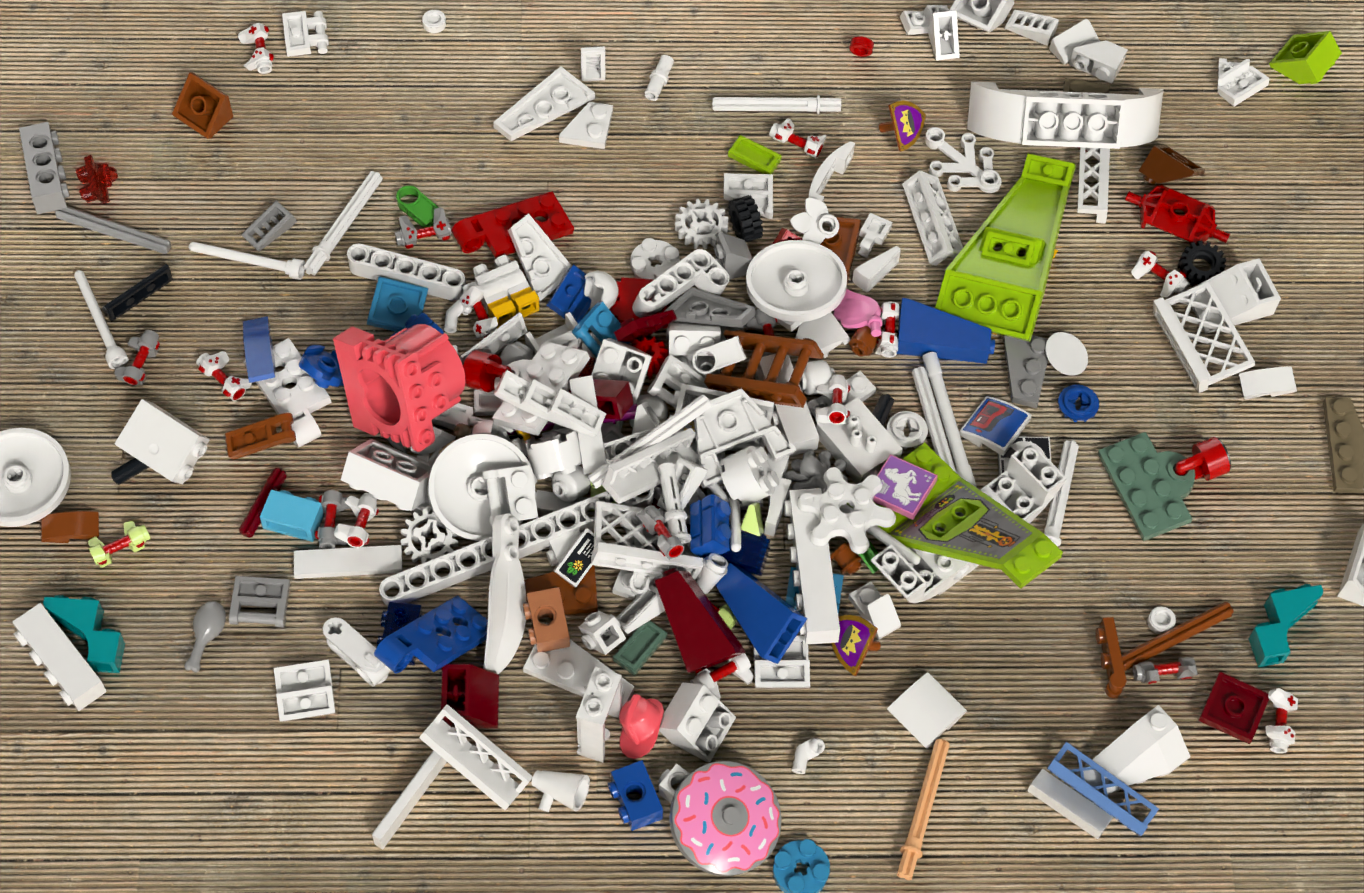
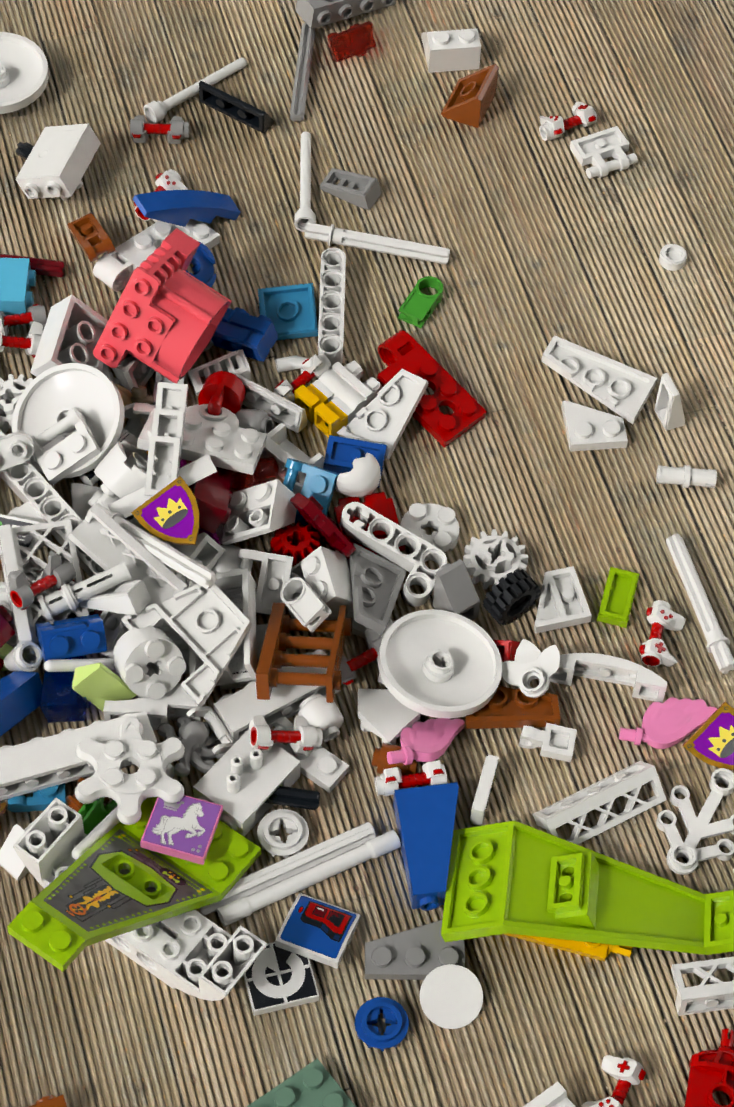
camera: 75 degrees right, 5 degrees down
(134, 106) = (452, 50): none -> white slope
(408, 234) = (380, 299): light grey piece -> none
(624, 419) = (171, 514): none -> shield
(812, 449) = (216, 726): none -> white piece
(873, 156) = (668, 722): none -> bright pink animal
(874, 270) = (510, 760): white slope -> none
(905, 285) = (484, 790): none -> white tile
(1059, 501) = (230, 1024): white axle -> none

